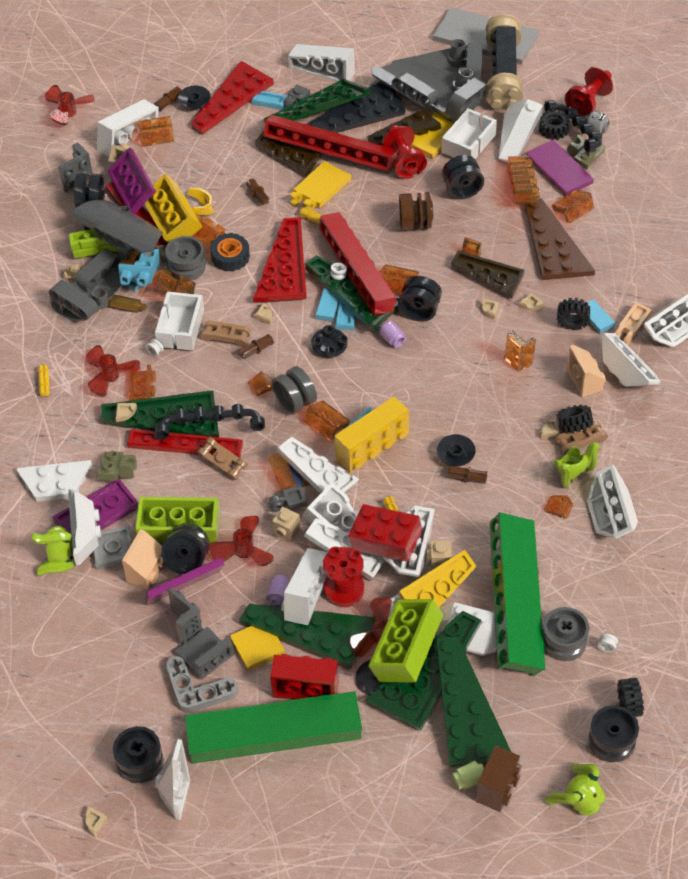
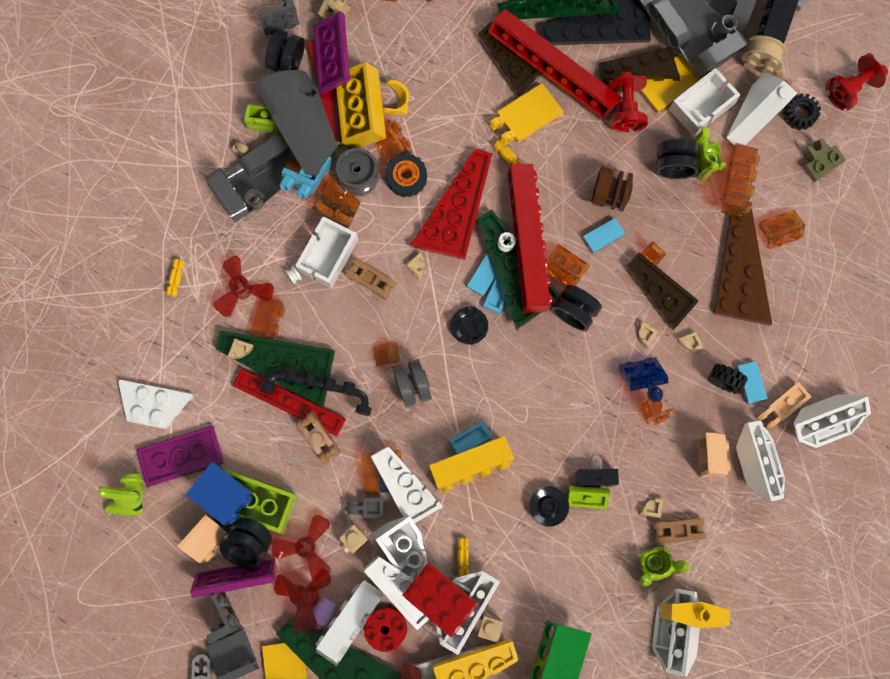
camera: 15 degrees right, 25 degrees up
(83, 526) = (159, 477): white wedge -> none
(112, 547) = (179, 507): light grey tile -> none
(116, 464) = (212, 410): olive plate -> none
(127, 303) = (284, 208): pearl gold cylinder -> none
(148, 511) = (220, 494): none -> blue brick
(254, 577) = (304, 617): none -> clear red piece
(256, 346) = (394, 307): reddish brown axle -> none
(257, 191) = (459, 102): reddish brown axle -> none
(325, 419) = (434, 422): clear orange bracket -> none
(392, 334) = (535, 338): lavender brick -> none
(422, 250) = (603, 235): none -> medium azure tile
(467, 474) = (551, 537): reddish brown axle -> none
(489, 169) = (709, 154): none -> lime hair
(489, 434) = (588, 497): none -> lime plate
(490, 417) = (597, 475): none -> black piece
(502, 326) = (645, 374): none -> clear blue plate
(559, 506) = (626, 604): clear orange slope -> none
(560, 167) = (786, 171): magenta tile -> none
(575, 418) = (684, 503): black tyre -> none
(594, 137) = (827, 163): black bar -> none
(599, 120) = (848, 124): light grey head -> none
(621, 479) = (696, 614): none -> yellow piece

